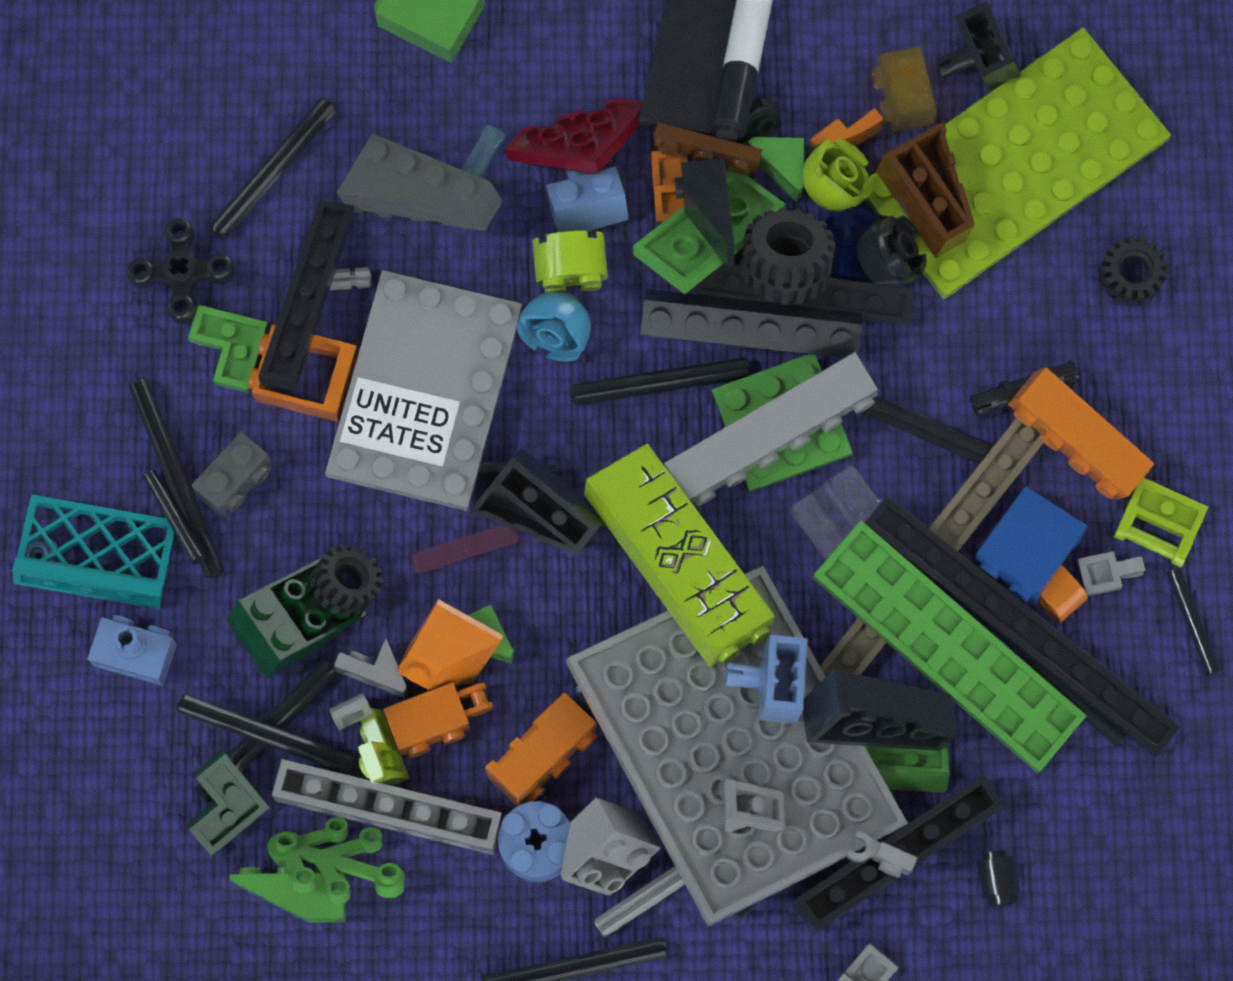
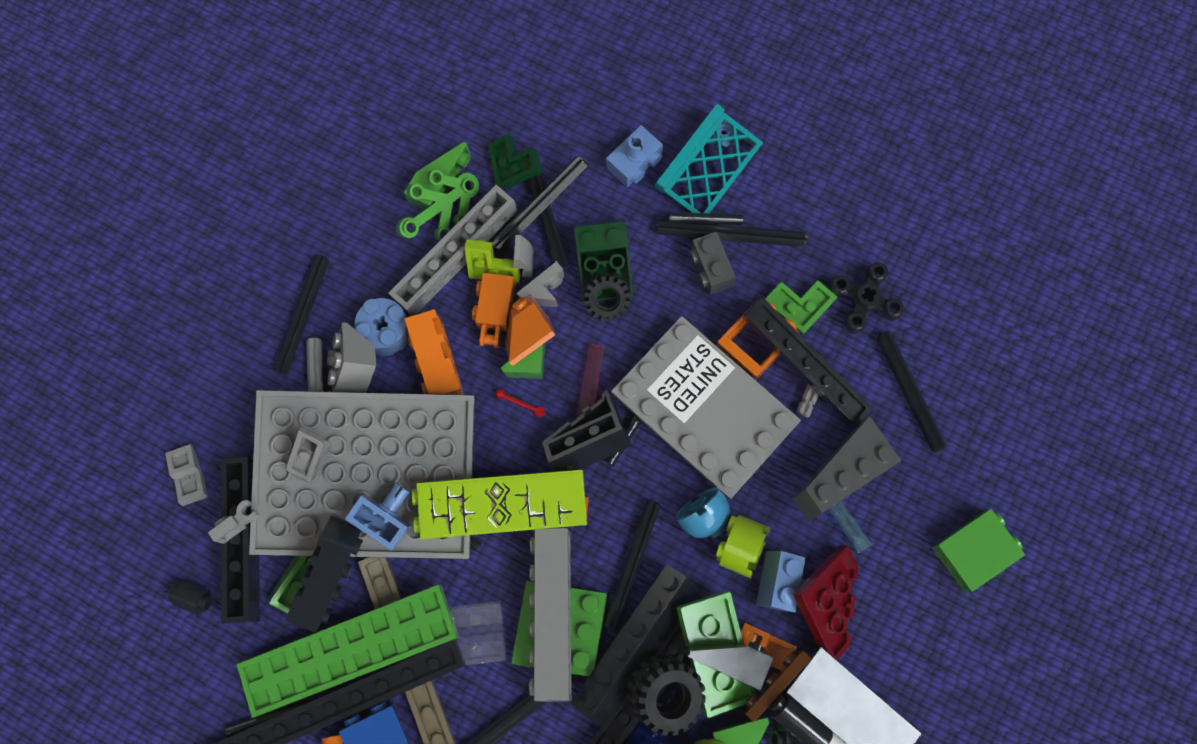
camera: 125 degrees right, 0 degrees up
(536, 592) = (539, 411): none -> red hinge

